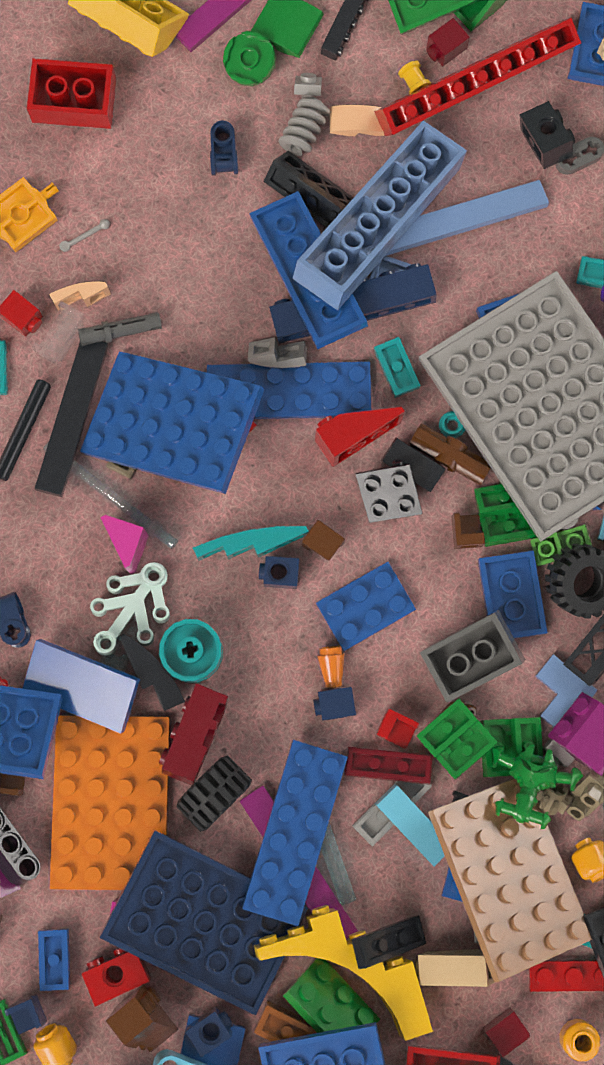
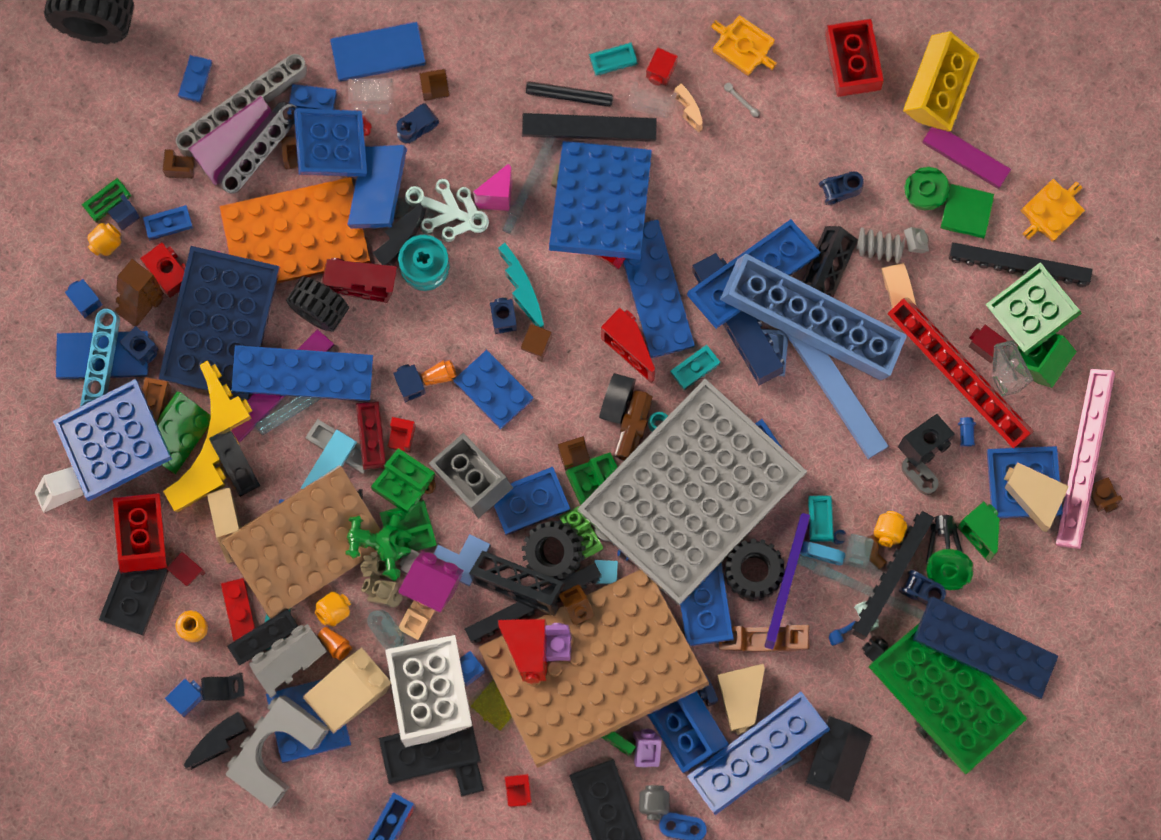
camera: 80 degrees right, 5 degrees down
(125, 327) = (665, 137): dark grey pin -> none
(269, 354) = (679, 269): light grey slope -> none
(389, 492) = (588, 383): hinge -> none
(413, 76) = (949, 323): yellow bush -> none
(487, 24) = (1009, 369): none -> clear slope
(542, 92) = (967, 431): none -> blue pin

